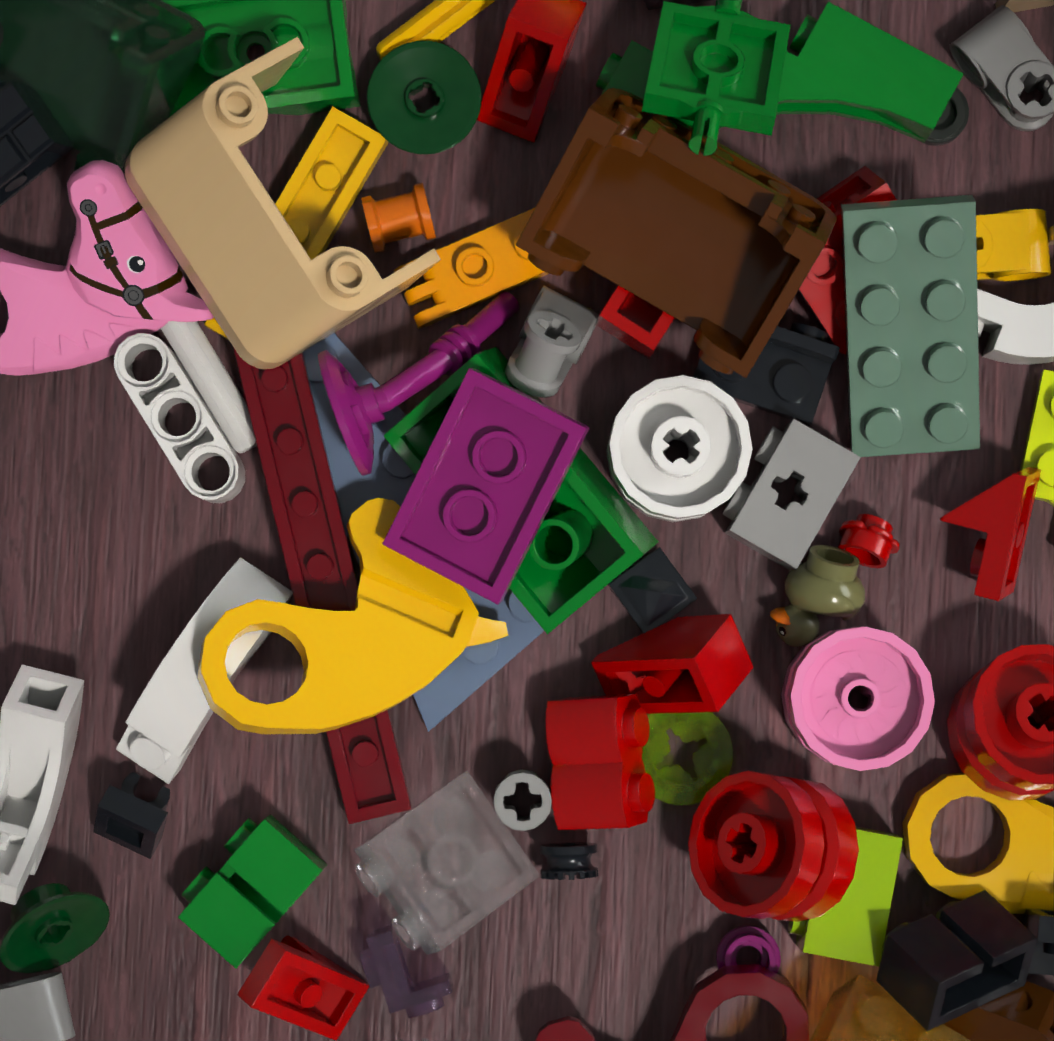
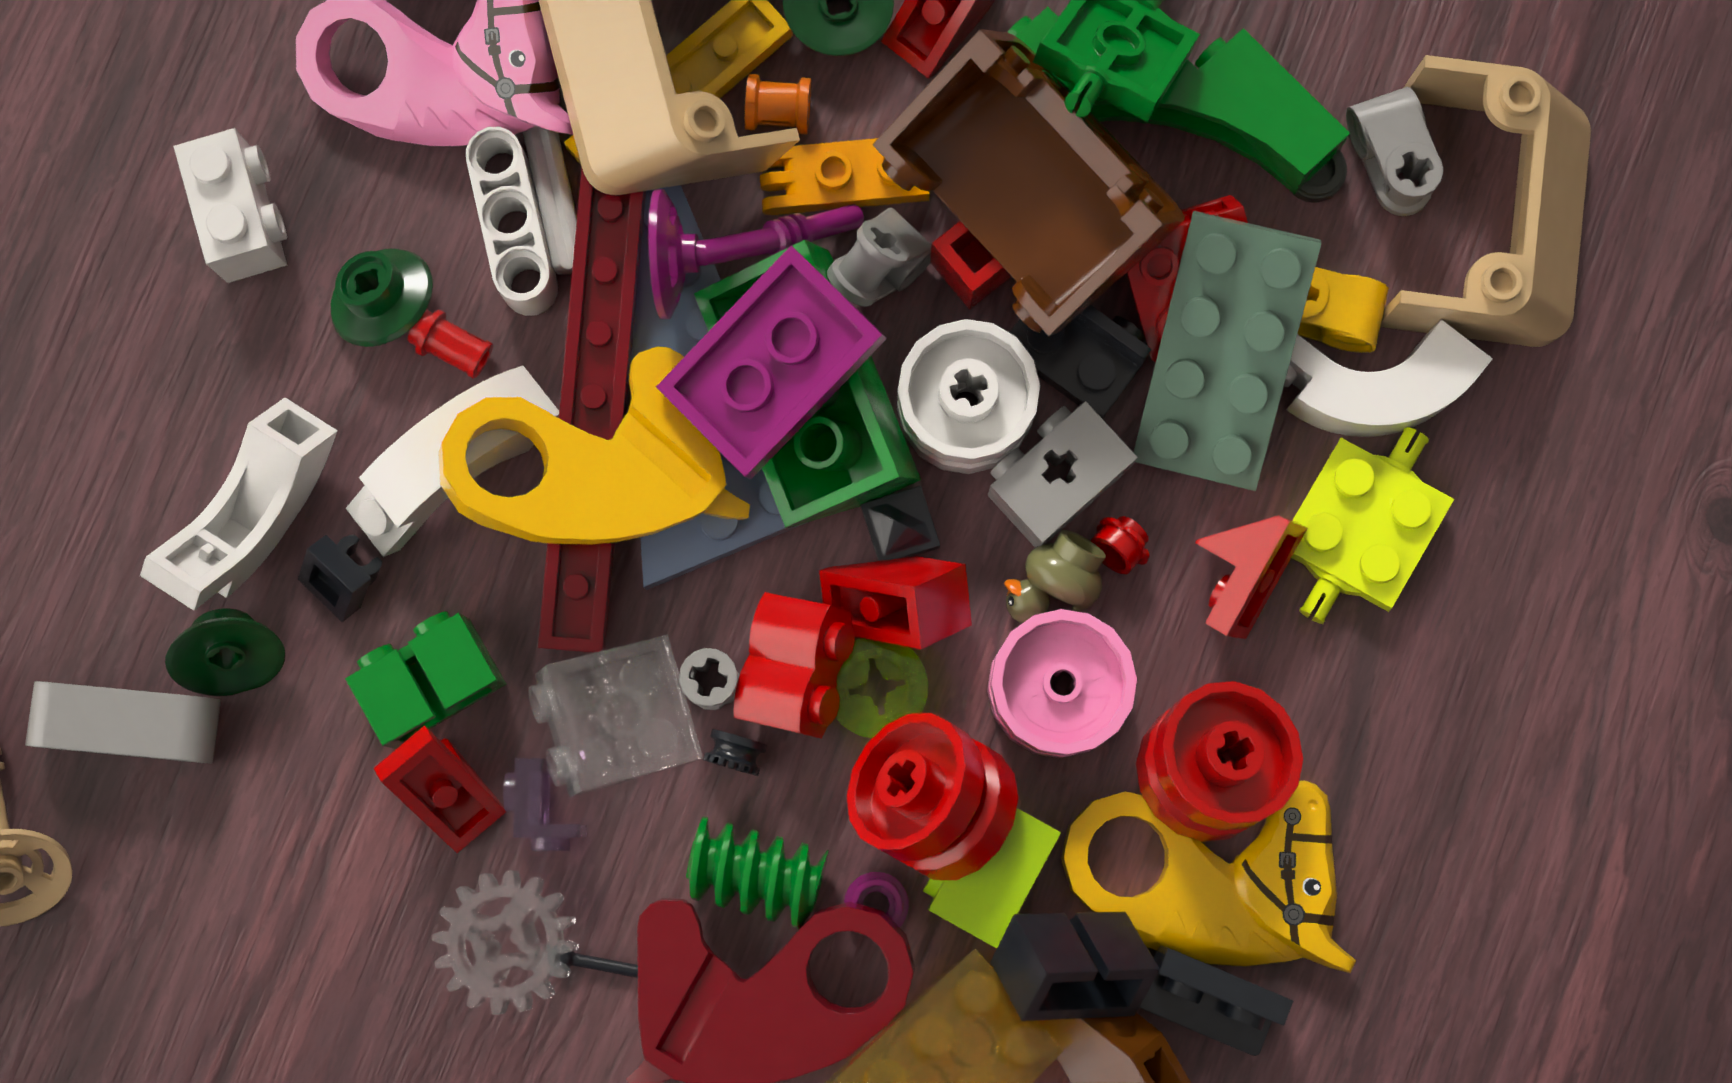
camera: 25 degrees right, 5 degrees down
(93, 546) = (384, 314): none -> dark green piece
(159, 556) = (449, 343): none -> red pin
(627, 968) = (754, 873): none -> green piece

